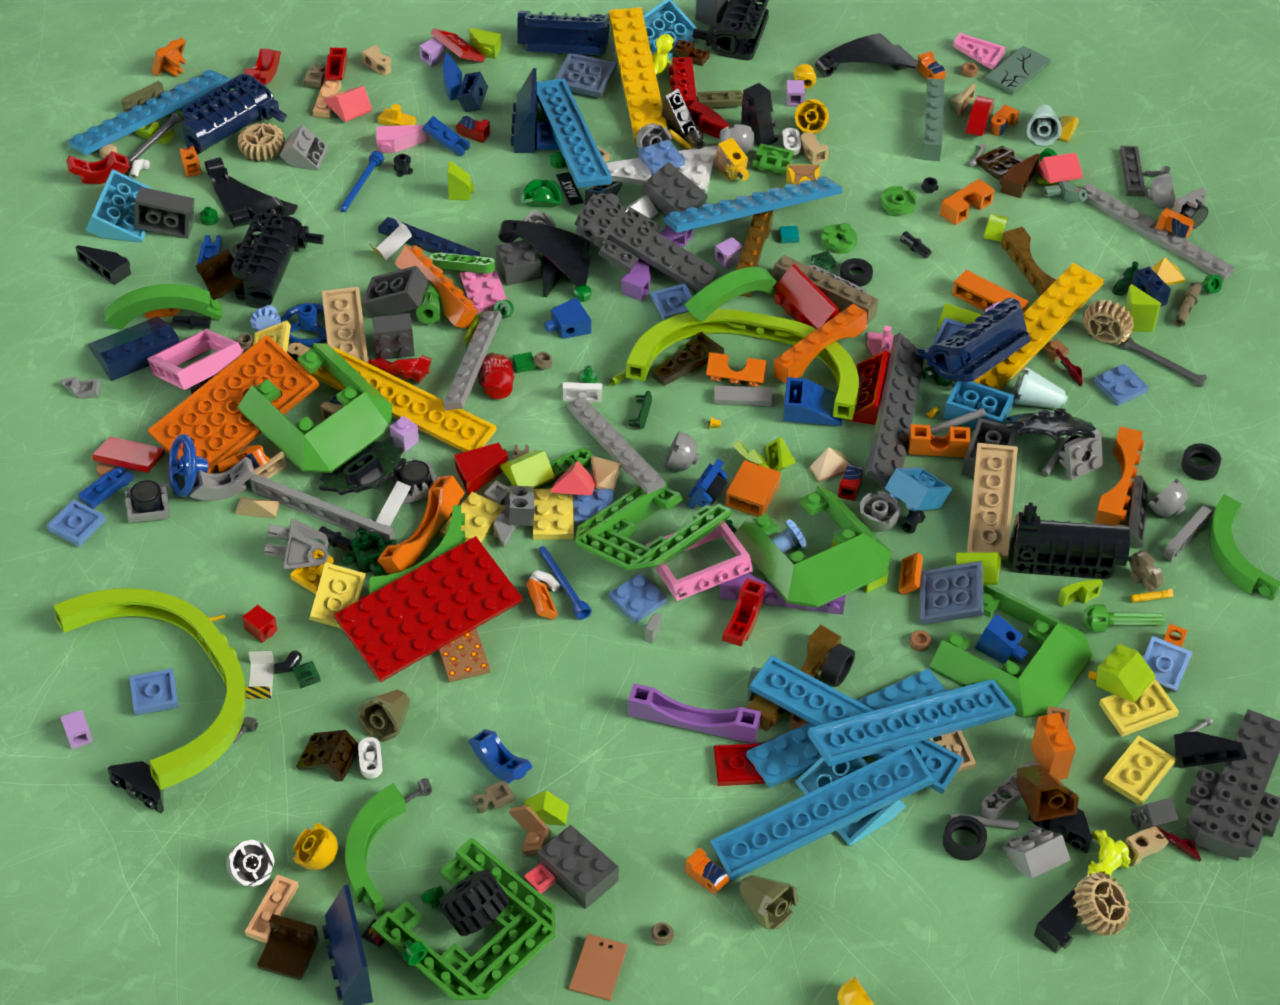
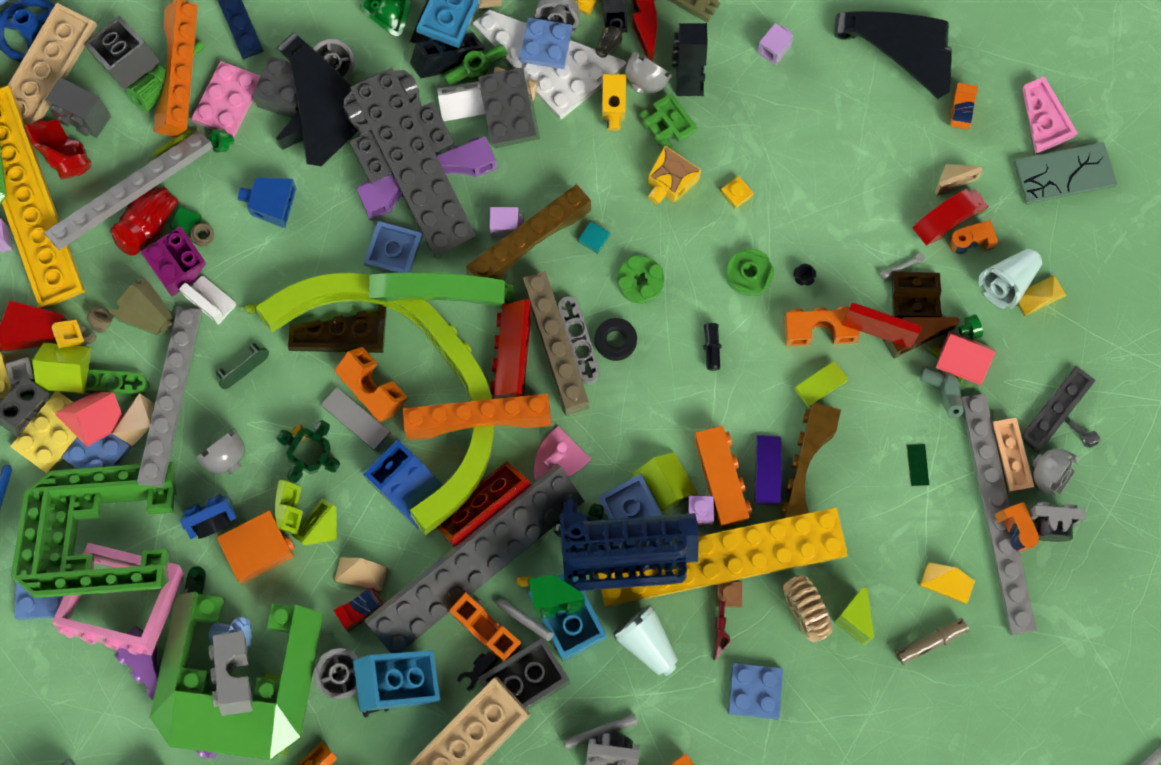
camera: 40 degrees right, 25 degrees up
(463, 262) = (225, 53): bright green beam -> none
(513, 448) = (67, 333): none -> yellow plate
(521, 436) = (99, 319): none -> dark tan tile
(541, 380) = (174, 260): none -> magenta slope
(548, 412) = (143, 309): none -> olive cone
(582, 293) = (317, 173): green tile -> none
(588, 375) = (227, 286): green tile -> none
(629, 187) = (486, 59): none -> bright green axle
(653, 628) = (17, 643): light grey tile -> none
(680, 140) = (596, 25): yellow wheel -> none
(731, 412) = (286, 438): none -> dark green piece
(745, 613) = (105, 699): red arch -> none
(752, 204) = (570, 182): dark azure plate -> none
(791, 140) = (709, 111): white plate -> none
(806, 73) = (808, 26): yellow head -> none
(811, 116) = (753, 95): yellow cylinder -> none
(812, 149) = (723, 130): tan leg -> none
(824, 260) = (597, 299): clear green plate -> none
(832, 538) = (232, 693): none -> light grey arch
(848, 171) = (737, 192): none -> yellow plate
(933, 120) = (891, 184): sand green arch -> none
(955, 462) = (482, 665): none -> black plate
(968, 383) = (553, 596): none -> green slope
(969, 70) = (1009, 136): medium nougat tile -> none
(1005, 169) = (882, 325): none -> red tile
(1013, 280) = (768, 470): none -> dark purple slope
(1051, 423) = (605, 704): black piece -> none
(1088, 236) = (918, 465): none -> dark green sticker
(1124, 282) = (900, 556): dark green piece -> none
(1134, 200) = (1012, 455): none -> light nougat plate
(1151, 284) = (908, 591): dark blue brick -> none
(1198, 379) = (846, 746): dark grey piece -> none
(1212, 283) = (986, 634): green tile -> none

